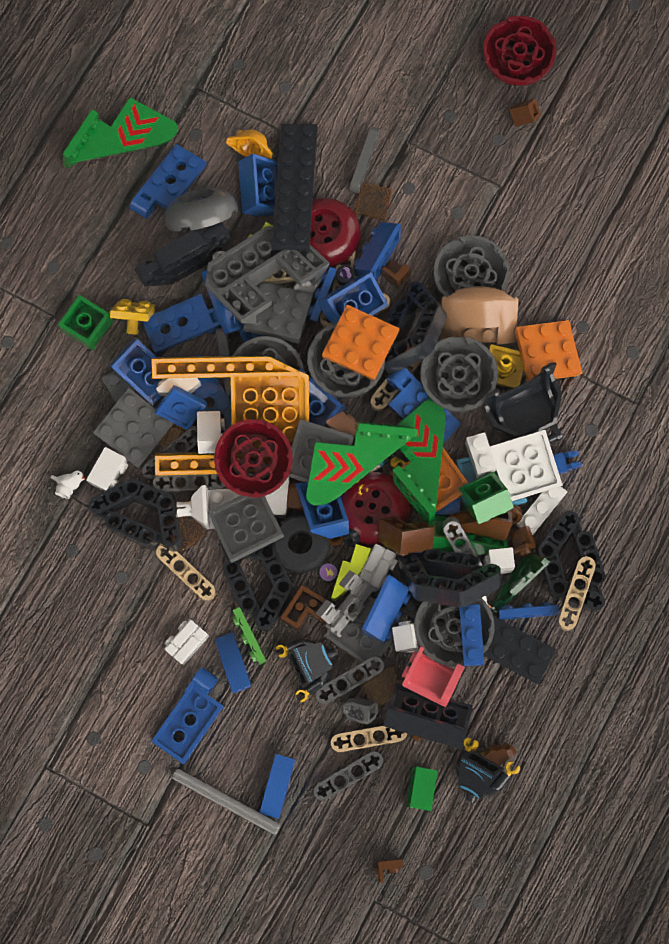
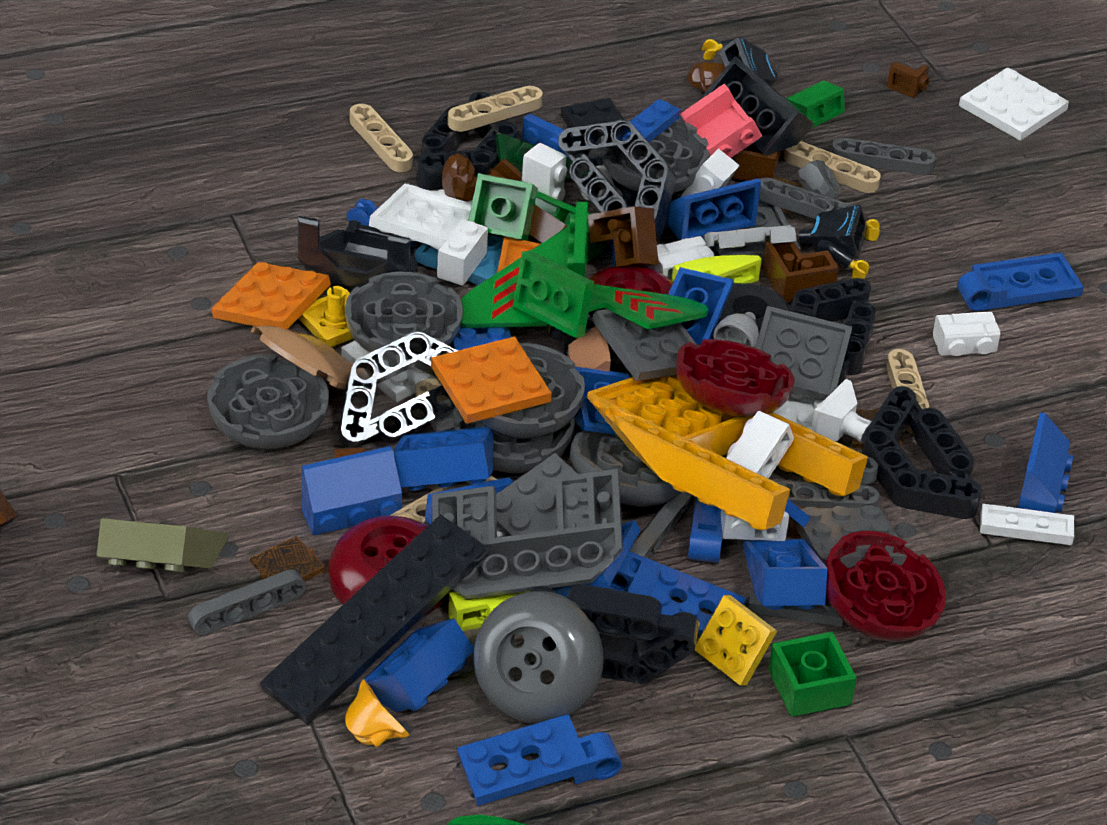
camera: 150 degrees left, 35 degrees down
(59, 518) = (1027, 524): none -> white plate
(67, 483) = (987, 546): white animal -> none
(70, 557) = (1046, 469): none -> blue slope
(74, 385) = (881, 596): none -> dark red brick
(107, 470) = (925, 523): white brick -> none
(226, 801) = (1038, 212): light grey axle -> none
(233, 662) = (927, 288): blue slope -> none
(248, 636) = (887, 298): bright green plate -> none
(277, 786) = (965, 186): blue slope -> none
(284, 507) = (738, 328): none -> light grey helmet
(314, 908) = (1013, 103): none -> white plate
(345, 274) = (415, 503): black tile -> none
(431, 155) = (158, 544): none -> olive wedge
(467, 548) = (569, 196): dark grey beam -> none
(536, 514) = (459, 178): none -> reddish brown rock
(624, 536) = (386, 135): none -> tan beam

